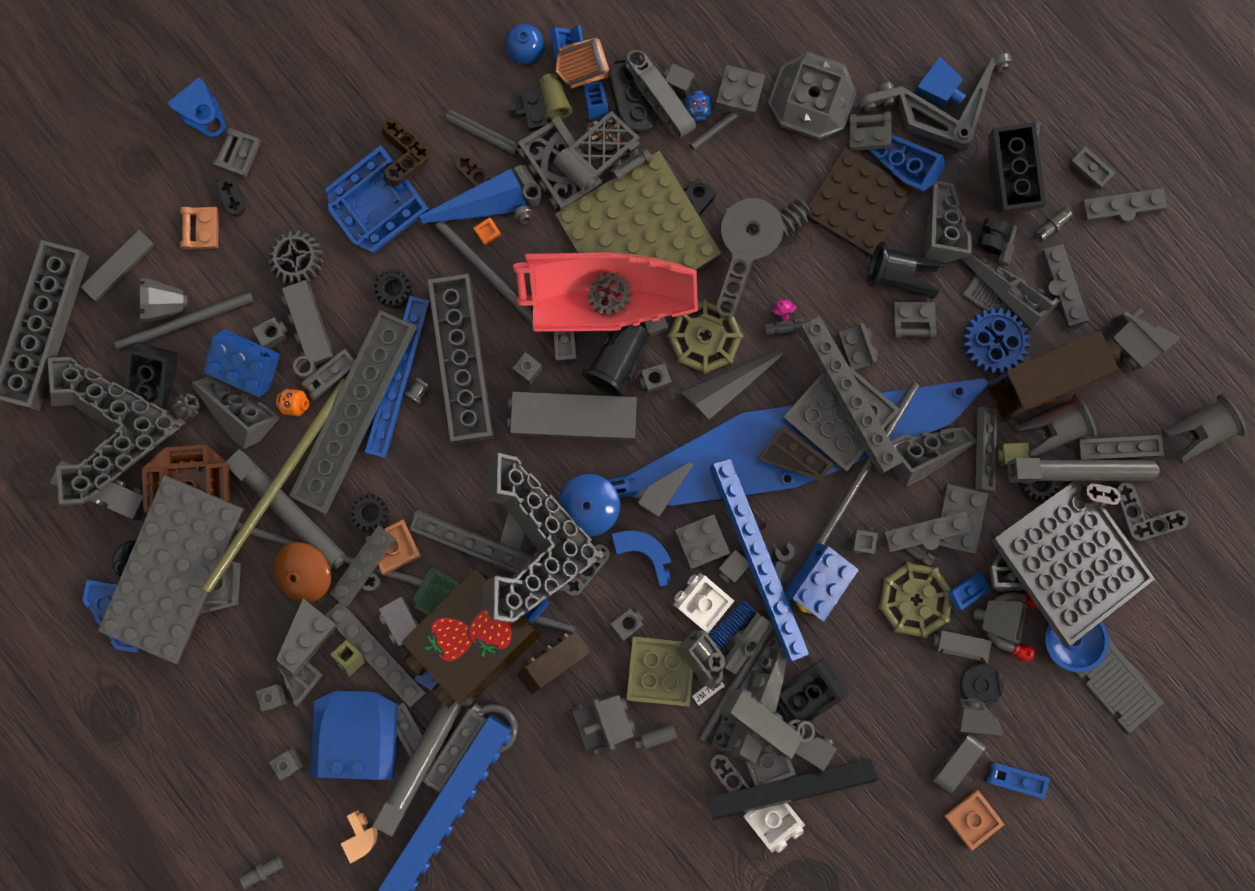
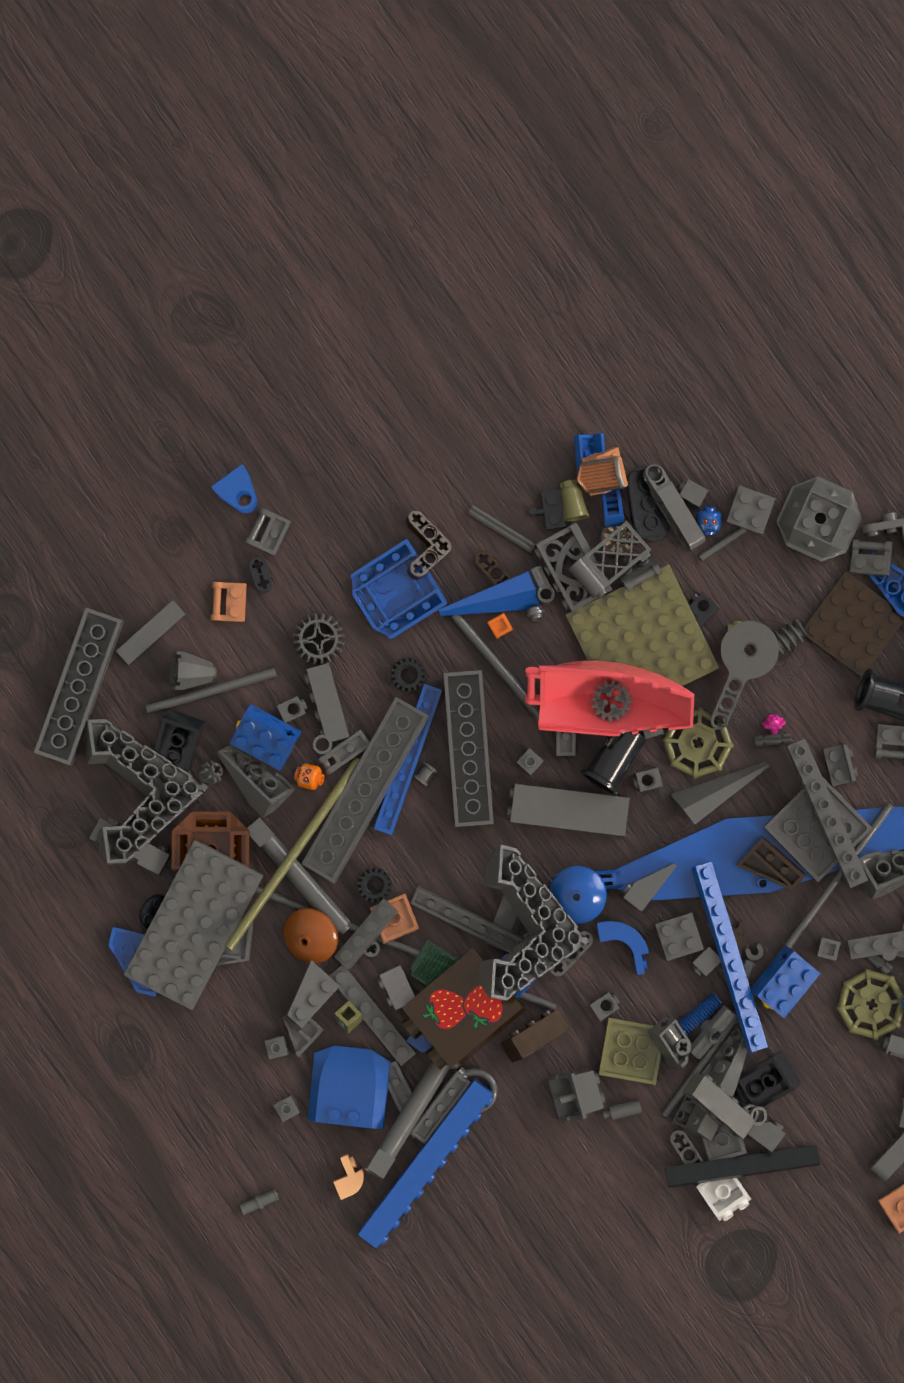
camera: 10 degrees right, 5 degrees up
(524, 44) = (547, 445): blue cylinder -> none
(702, 602) = (675, 991): white plate -> none
(704, 694) = (669, 1074): sticker -> none

